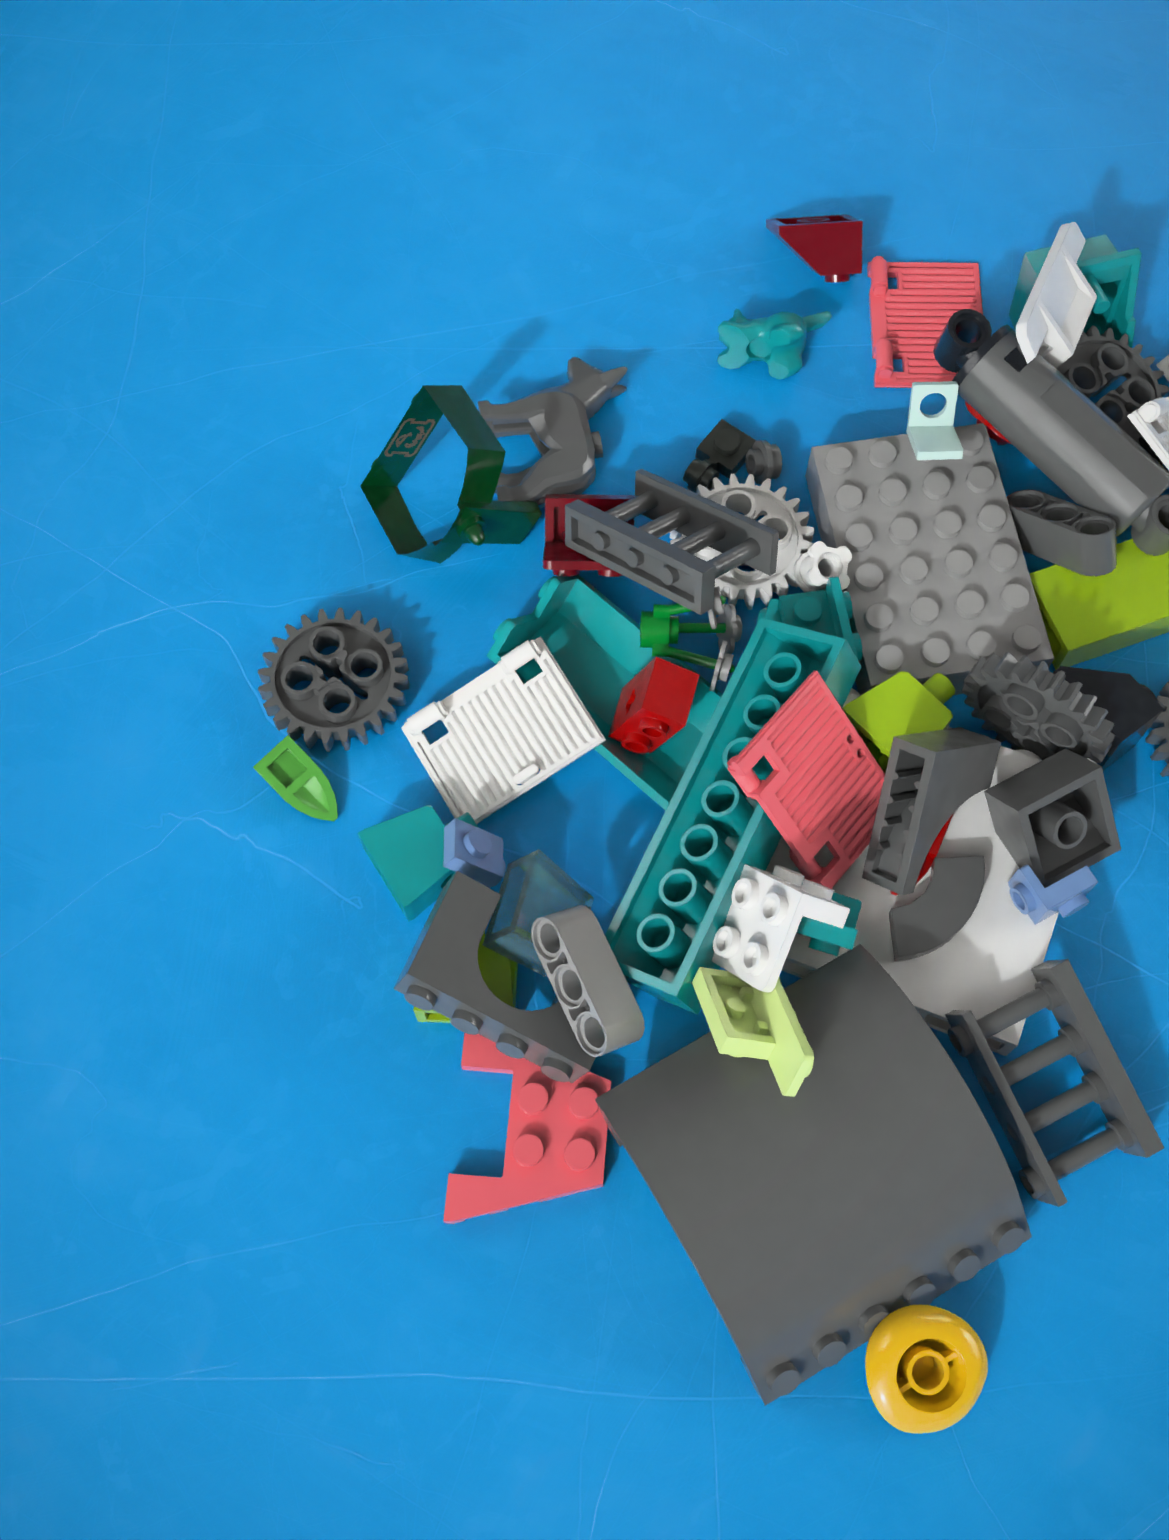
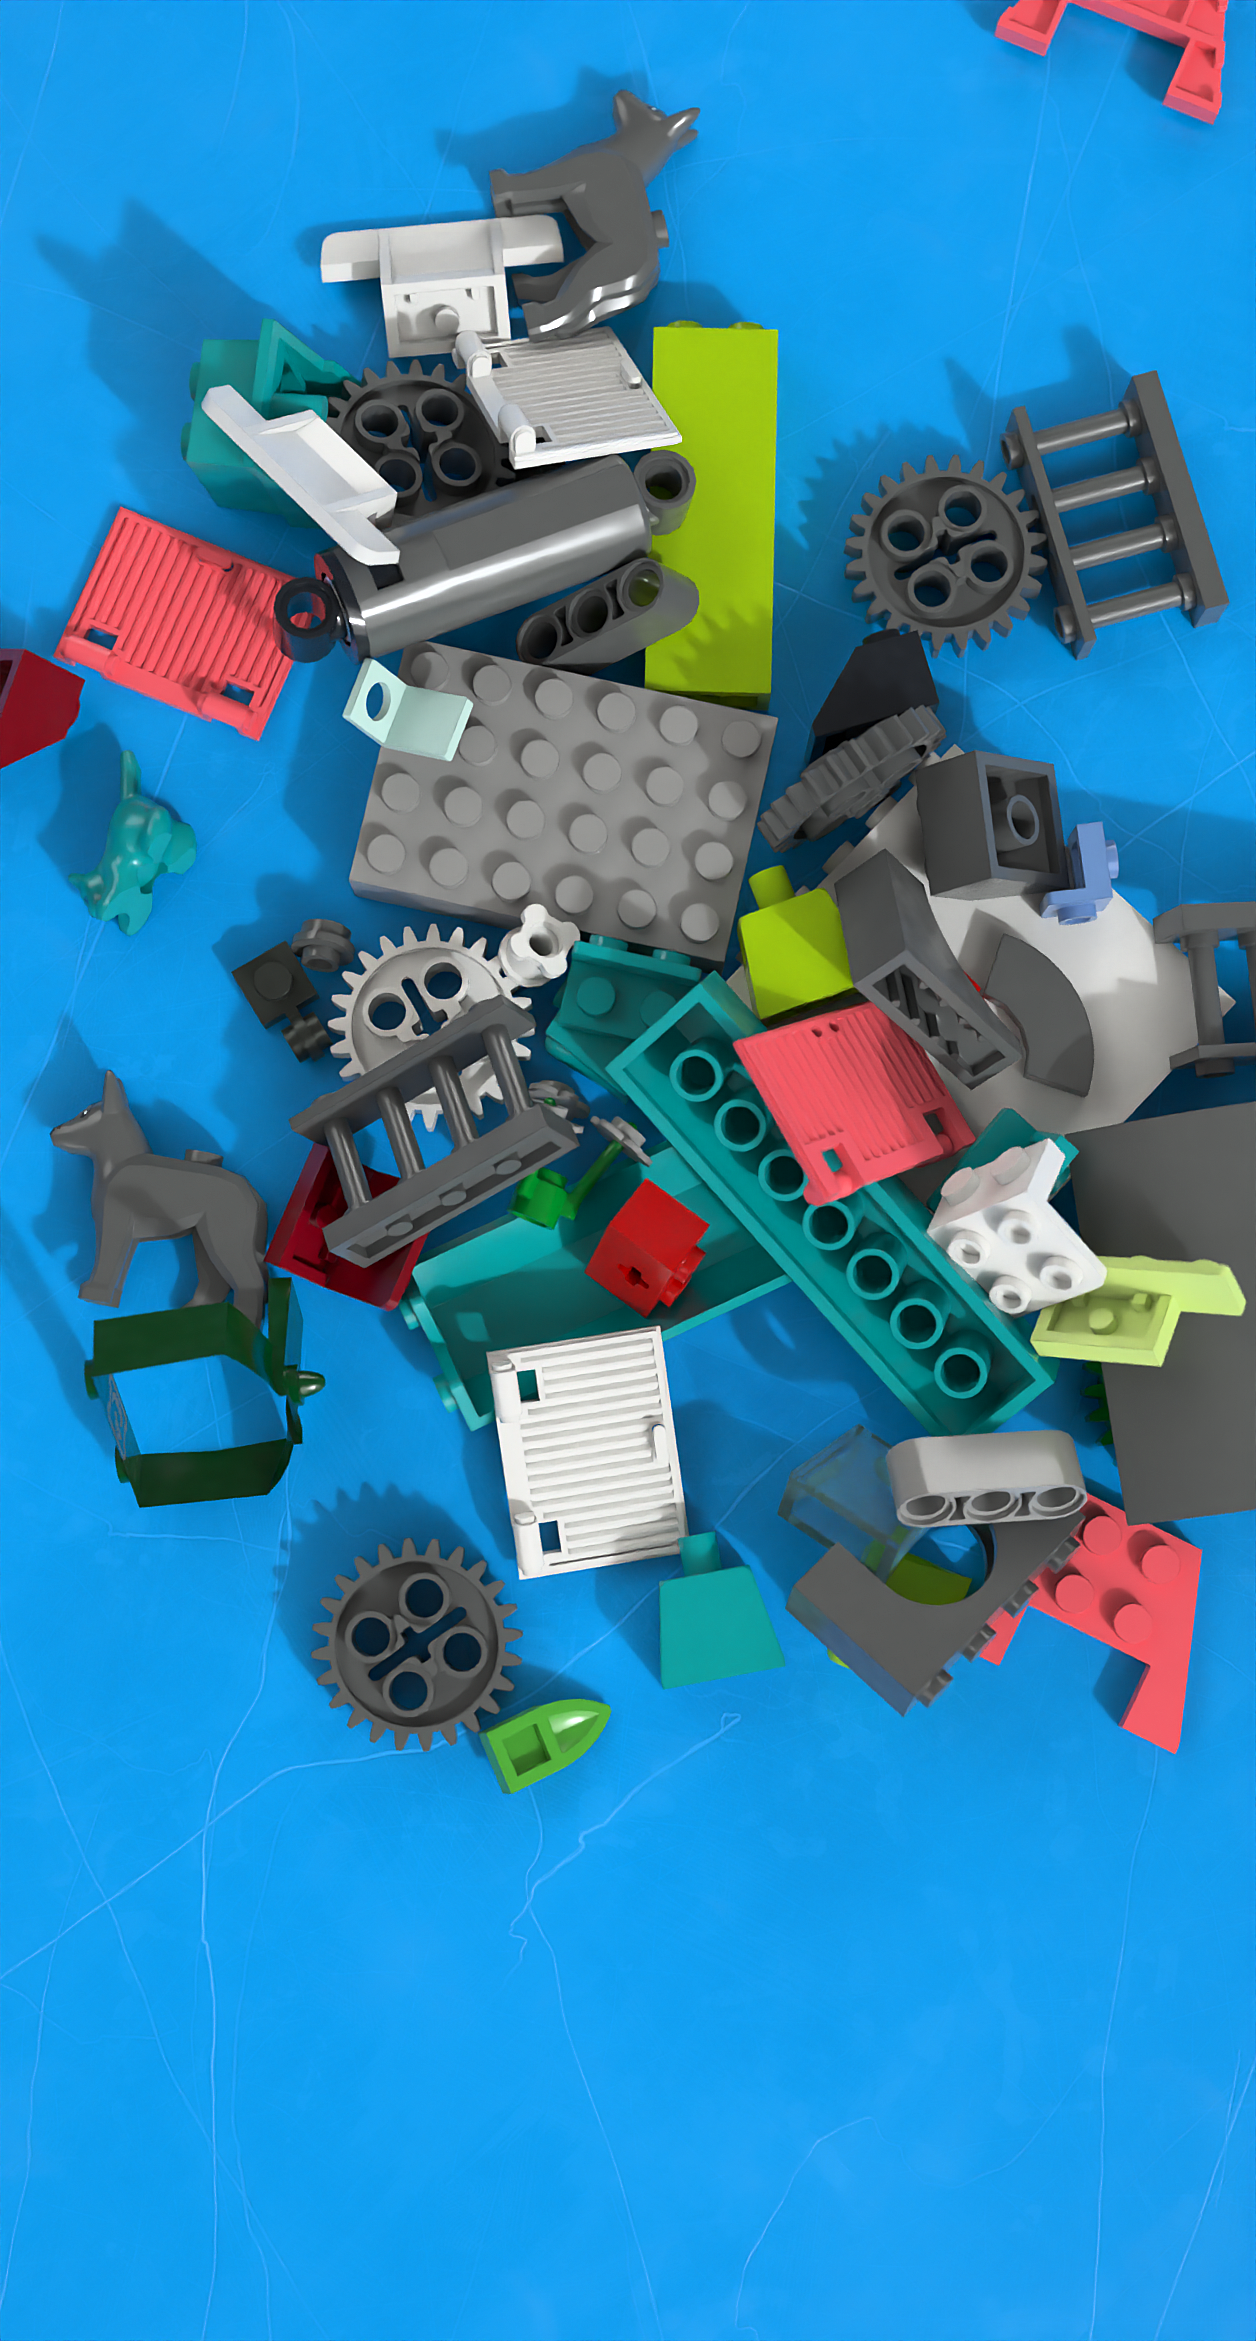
camera: 70 degrees left, 15 degrees up
(473, 852) = (750, 1552): medium blue bracket -> none

